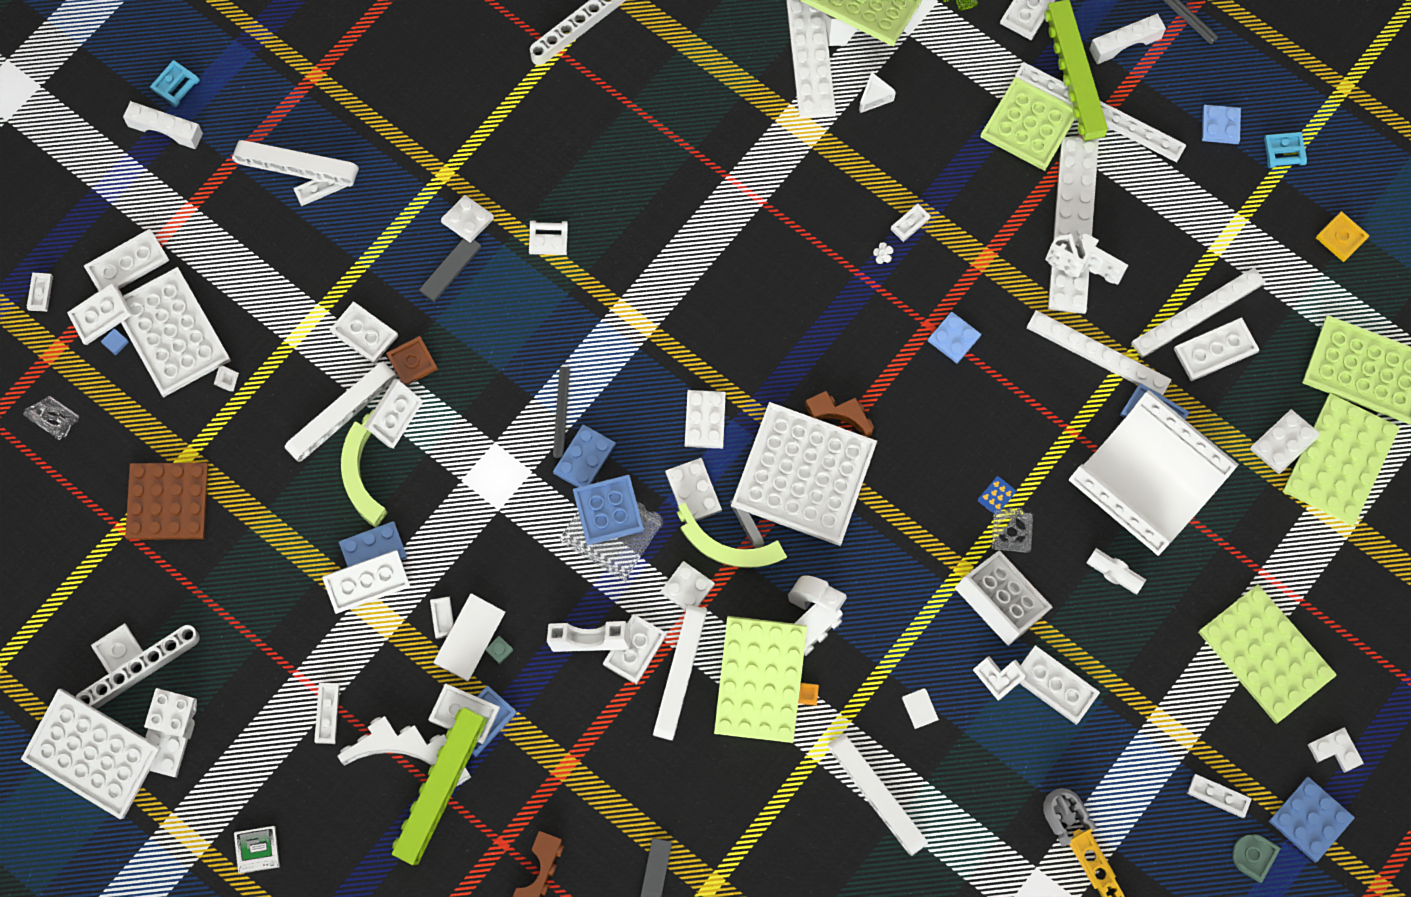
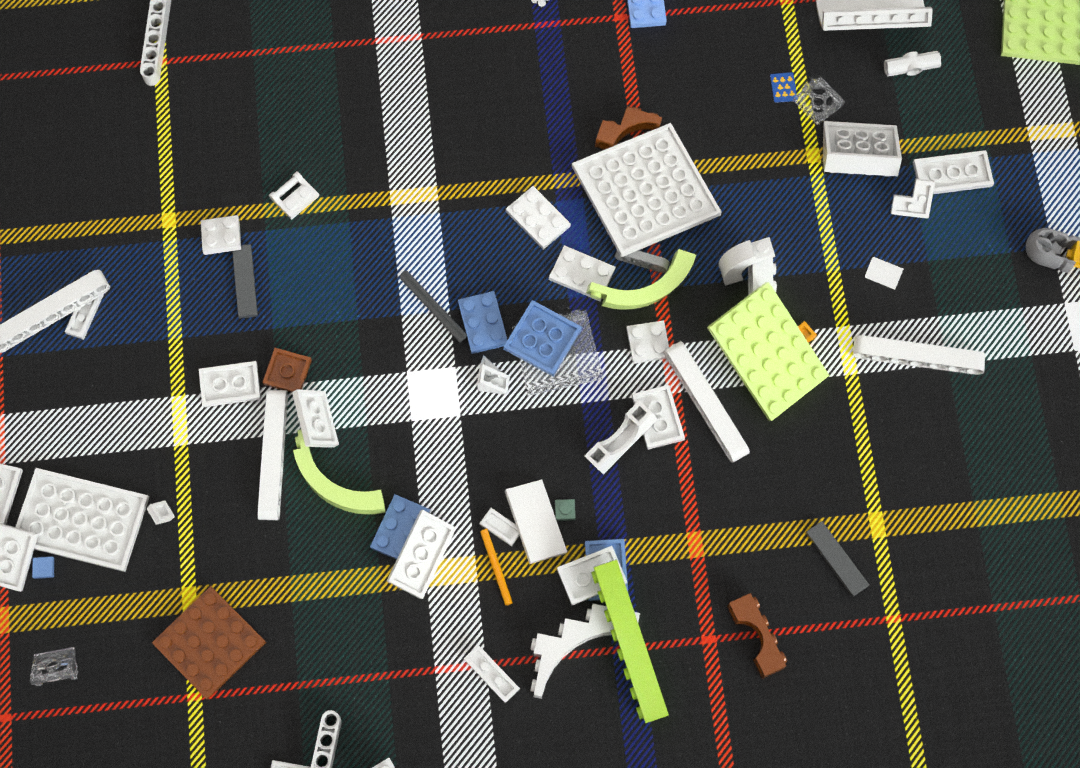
camera: 45 degrees left, 0 degrees up
(409, 642) = (496, 567): none -> light orange bar
(547, 503) = (491, 378): none -> white slope

